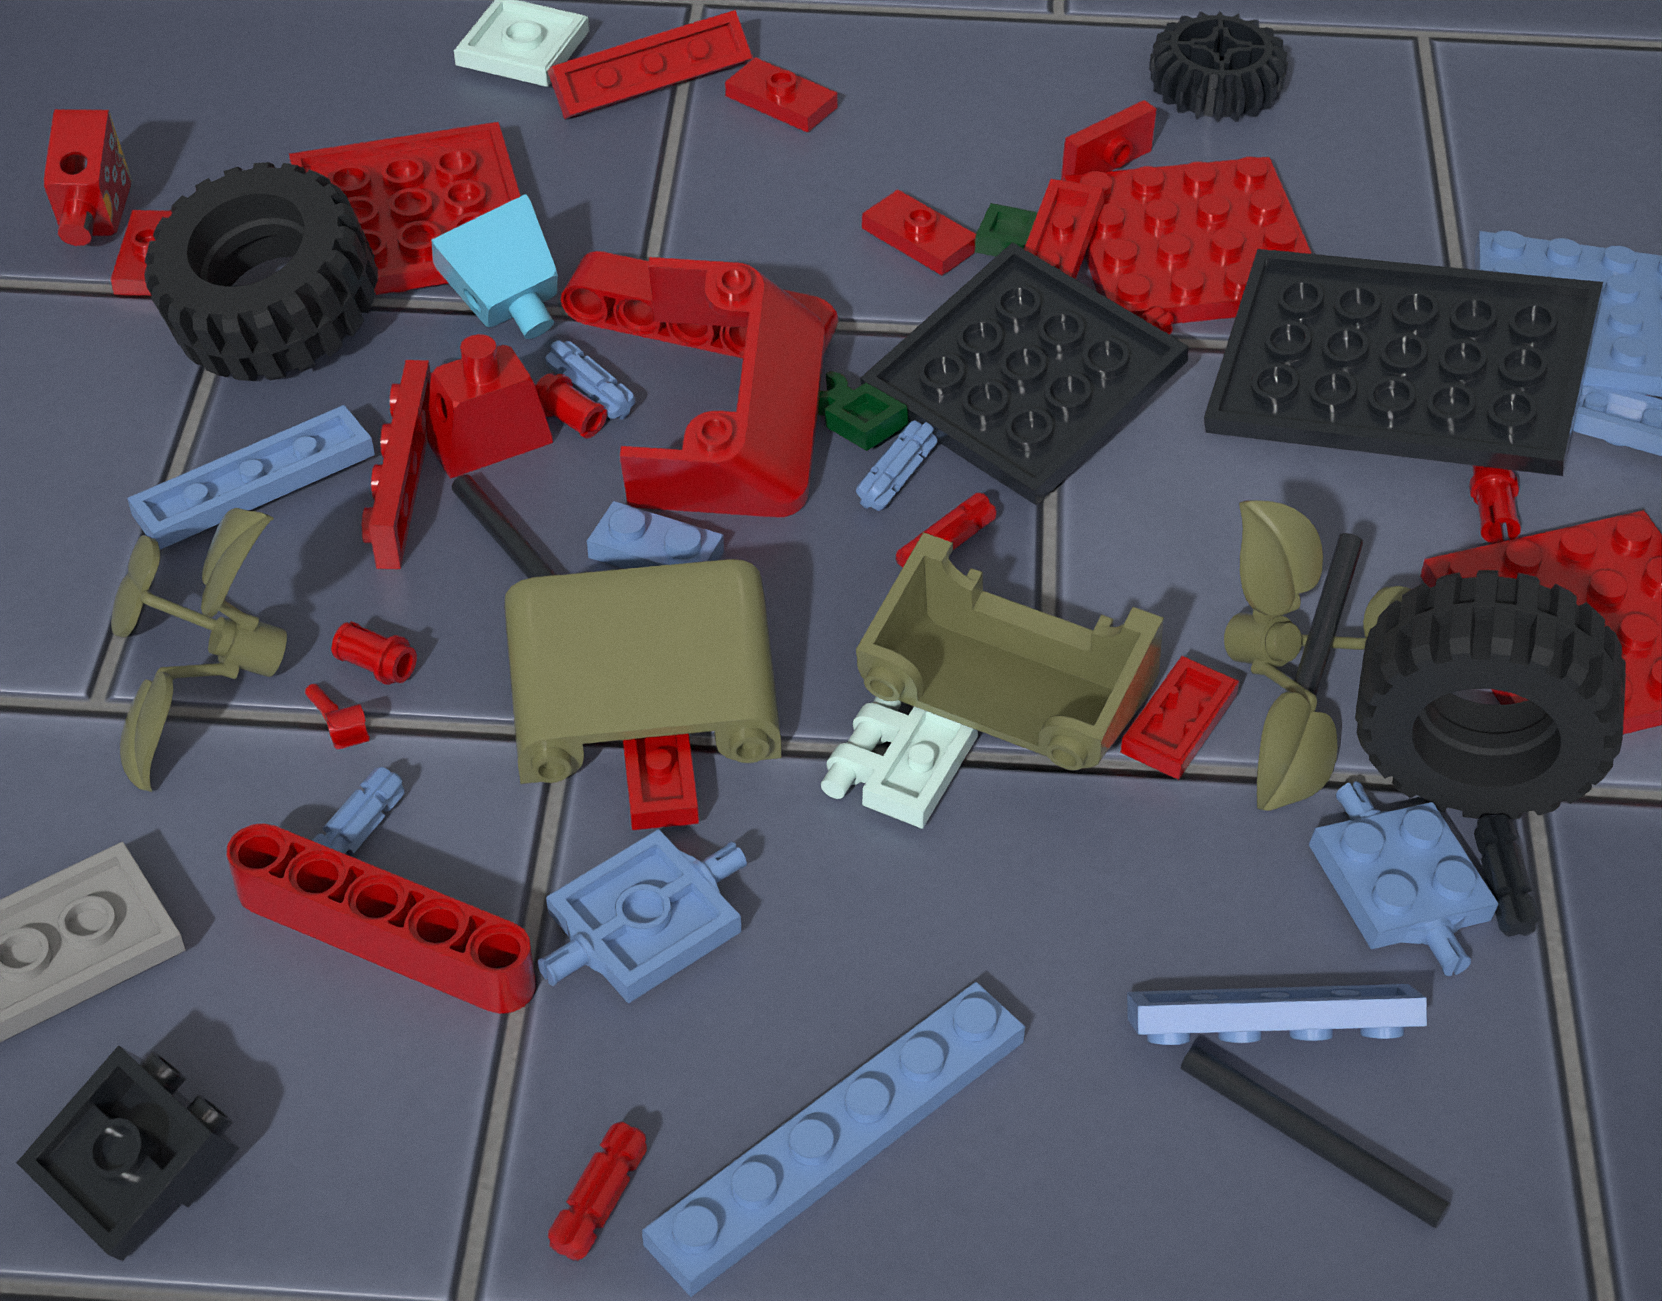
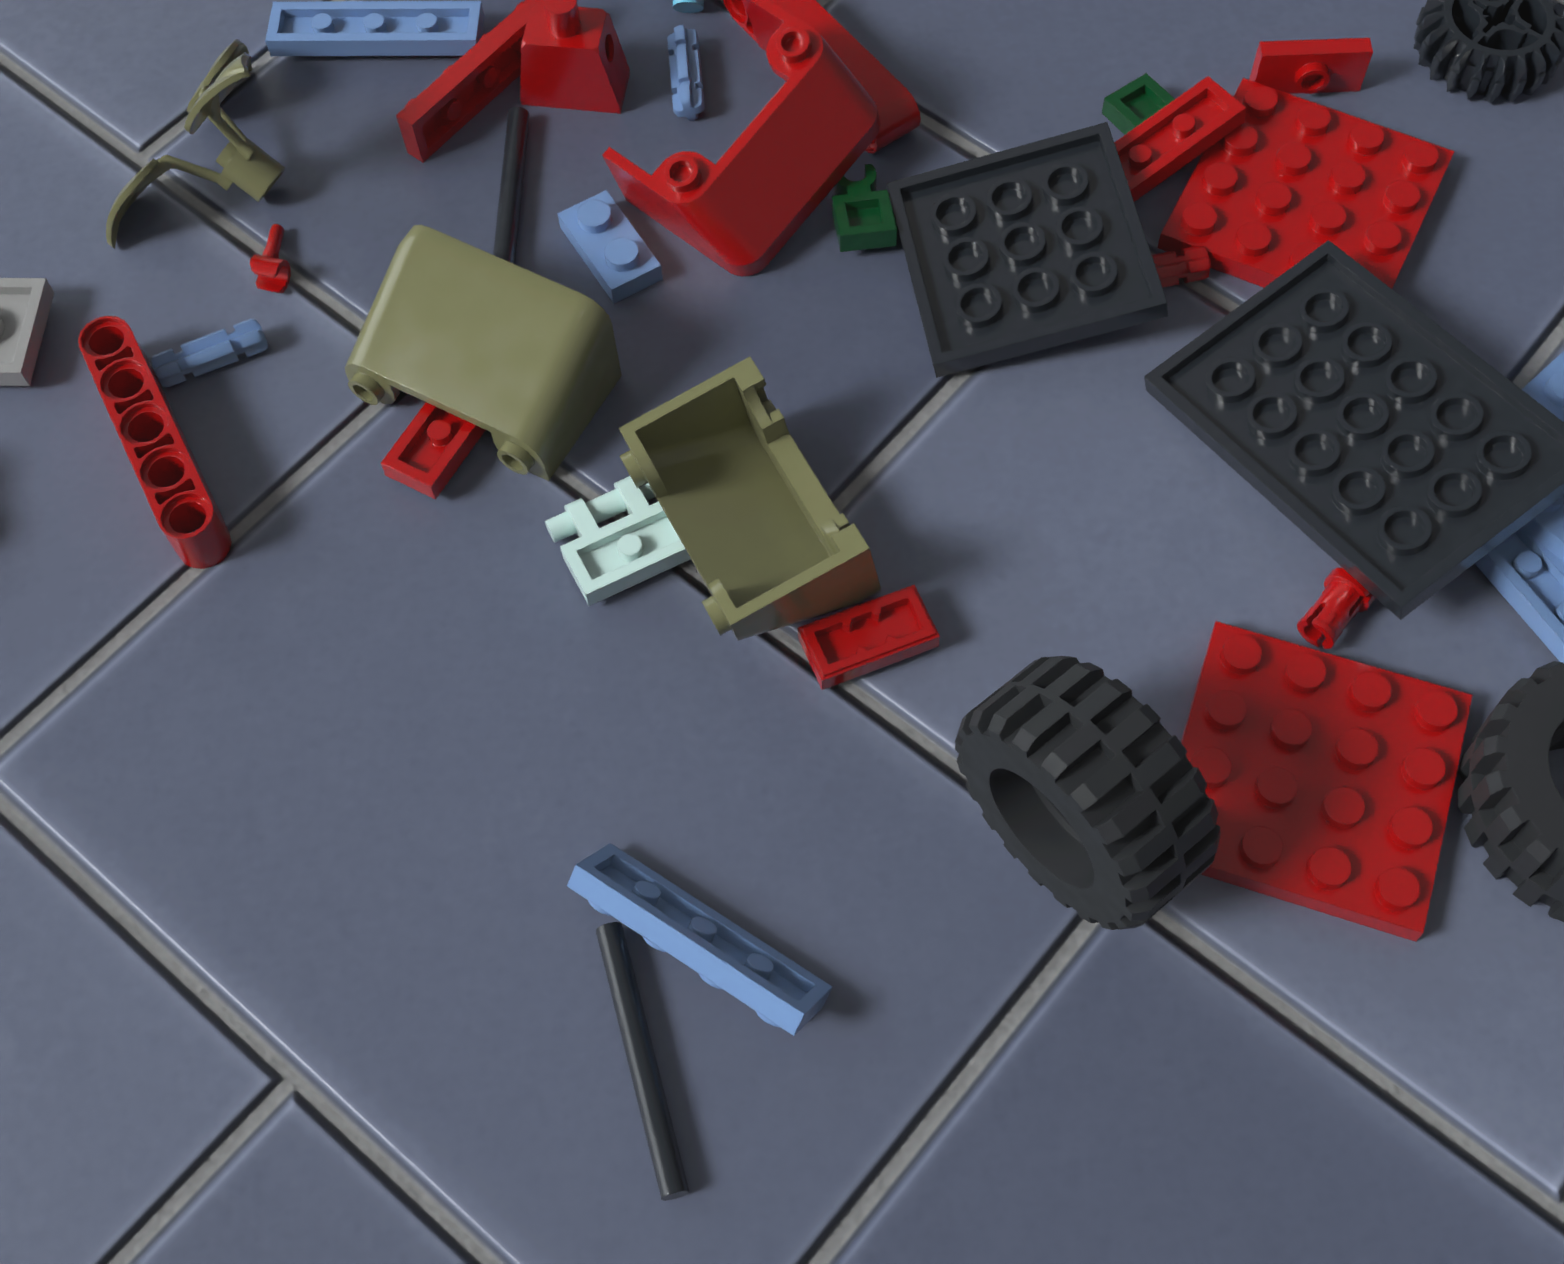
camera: 40 degrees right, 15 degrees up
(386, 657) = (337, 232): red pin -> none
(570, 405) = (646, 77): red pin -> none
(597, 1191) = (116, 743): red axle -> none
(643, 915) = (325, 550): medium blue plate -> none
(831, 1139) = (308, 812): medium blue plate -> none
(896, 465) = (853, 278): medium blue axle -> none
(919, 232) = (1070, 69): red plate -> none
(956, 525) = (835, 363): red axle -> none
(1277, 562) = (988, 562): olive plant -> none
(1328, 612) = (1019, 650): black bar -> none
(1403, 876) = (920, 893): medium blue plate -> none
(1506, 875) = (1008, 949): black axle -> none

